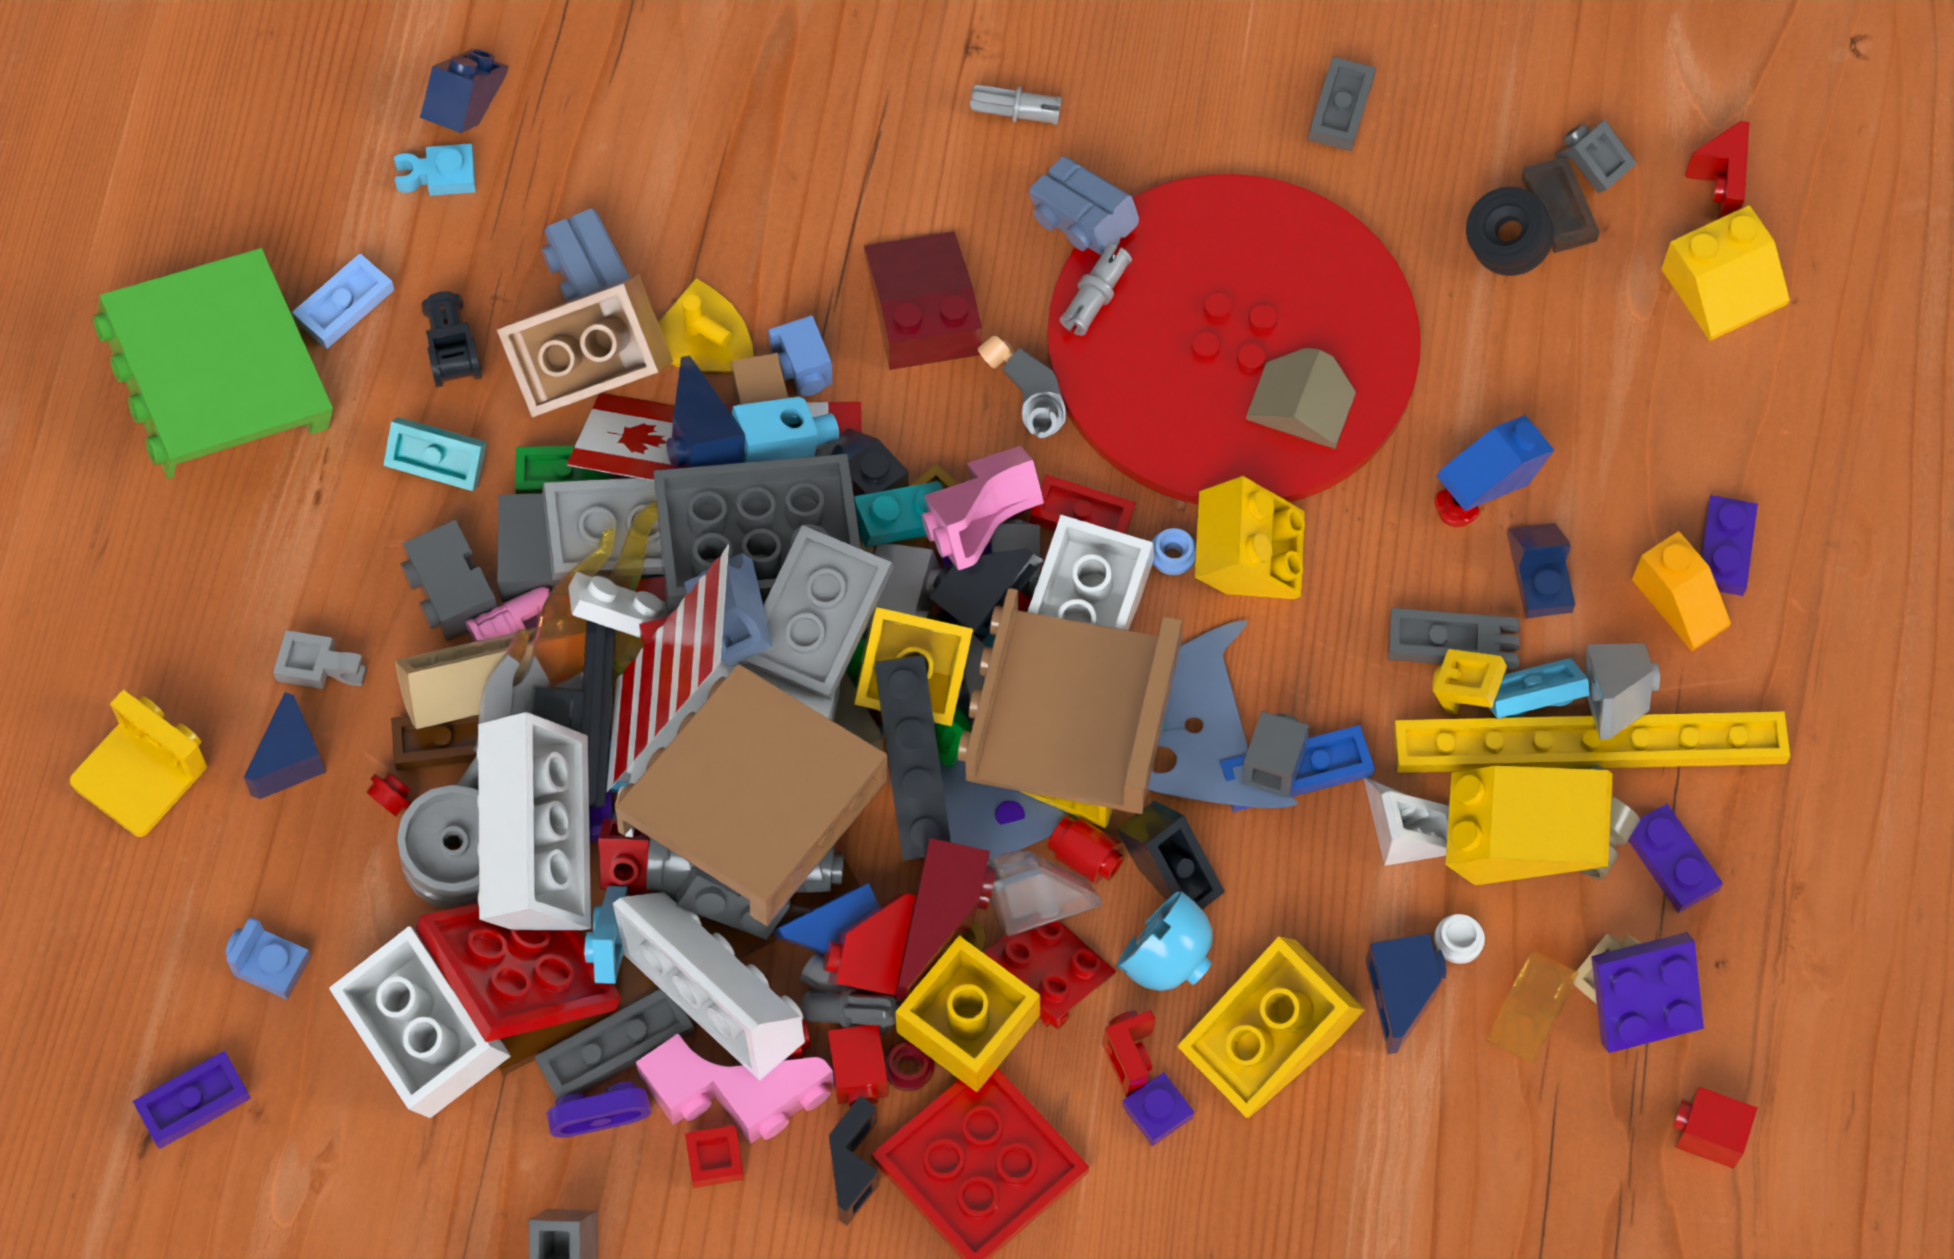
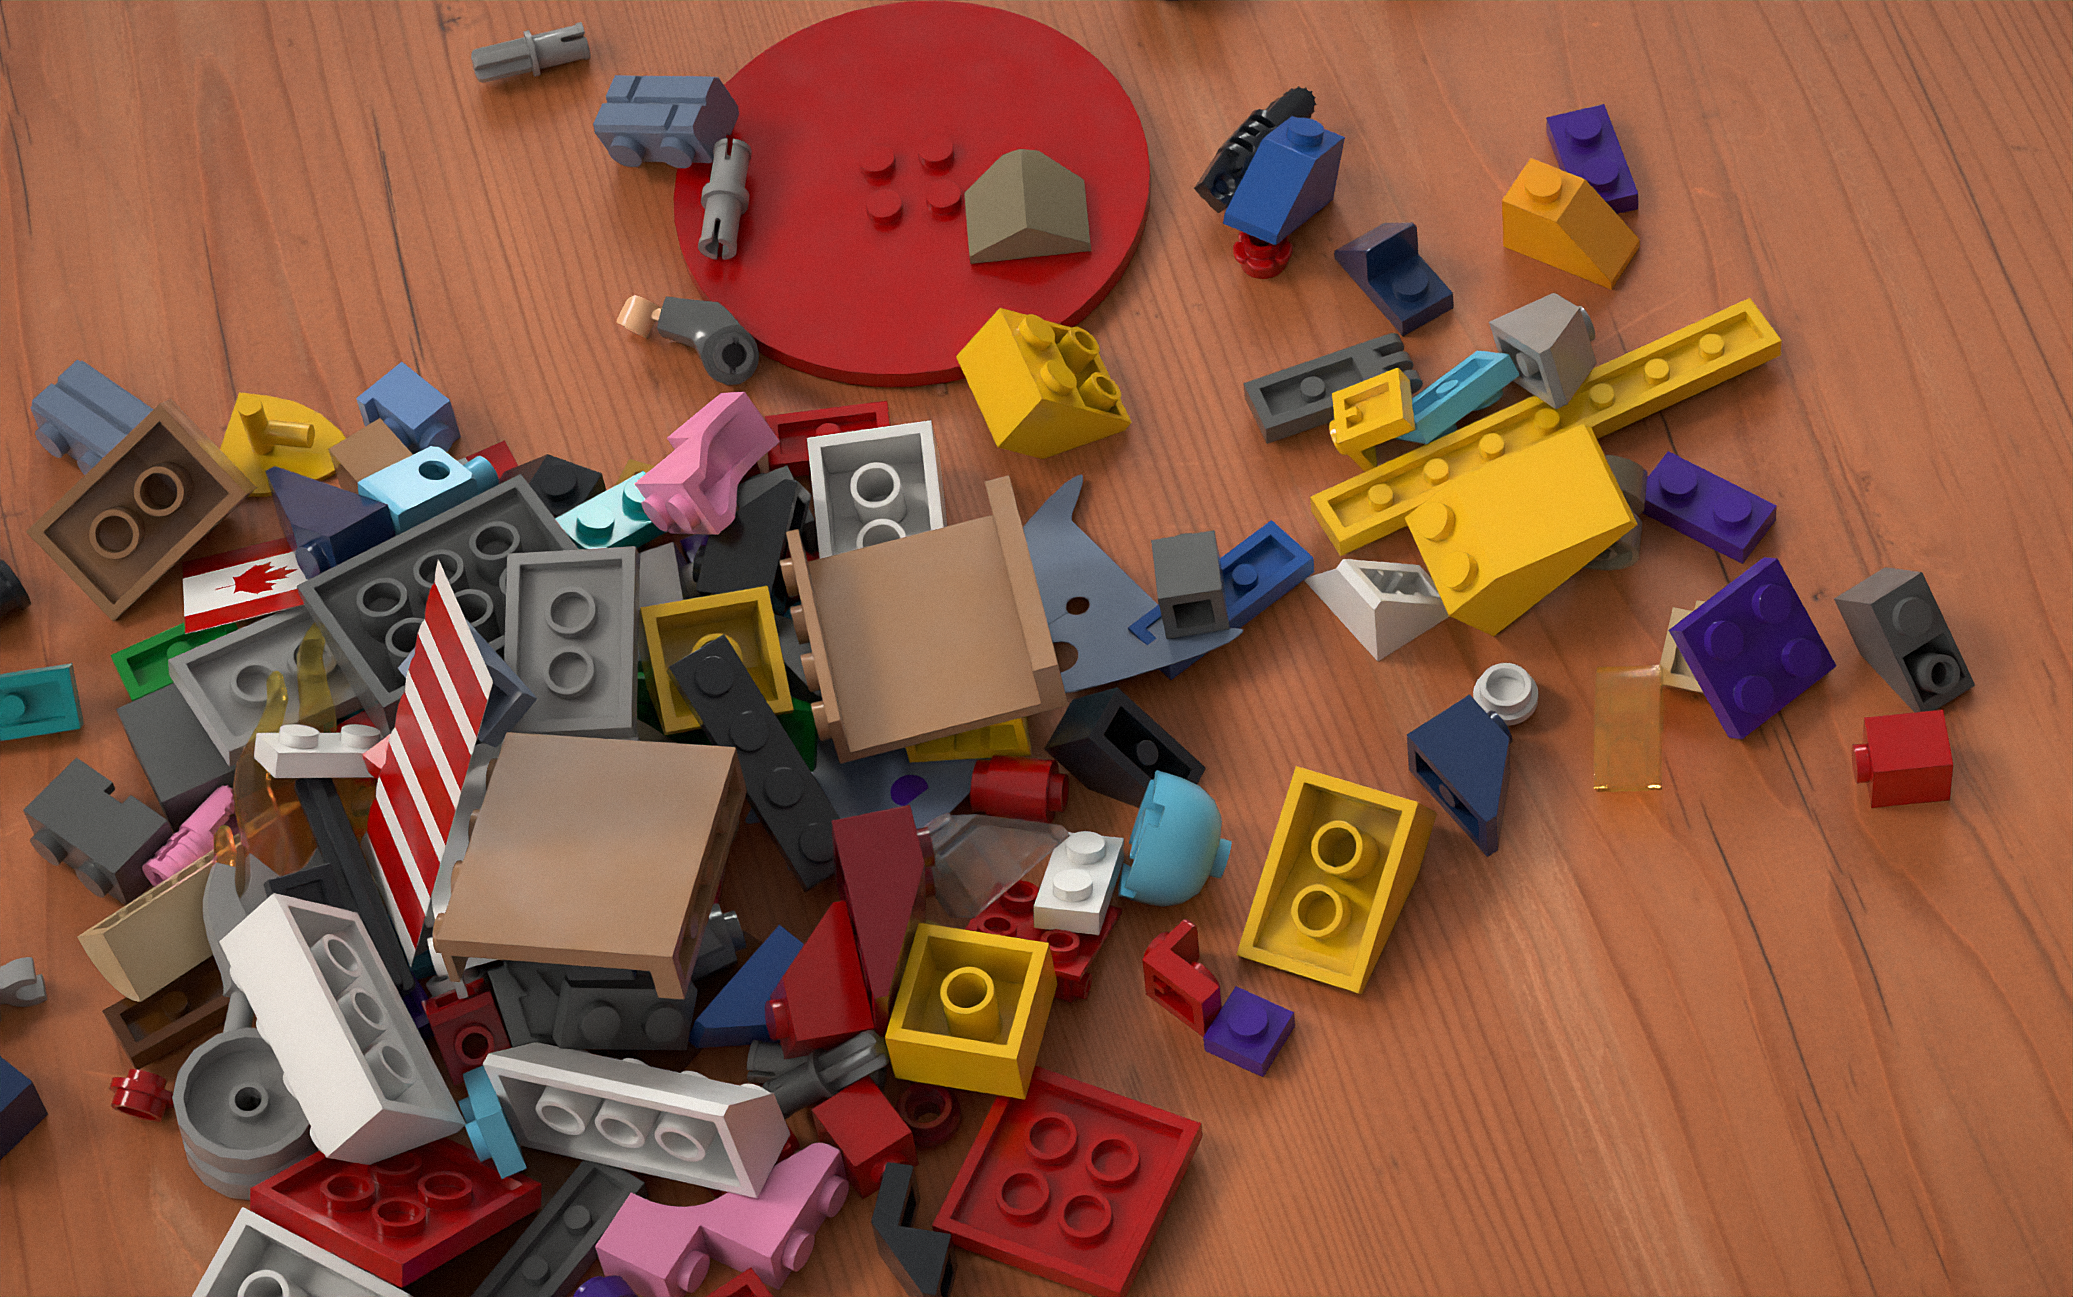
camera: 15 degrees left, 10 degrees down
(924, 300) = (528, 301): dark red slope -> none
(1092, 943) = (1079, 883): none -> white plate
(1180, 541) = (960, 423): light blue plate -> none
(1474, 423) = (1235, 155): none -> black hinge
(1762, 1033) = (1905, 638): none -> dark grey slope

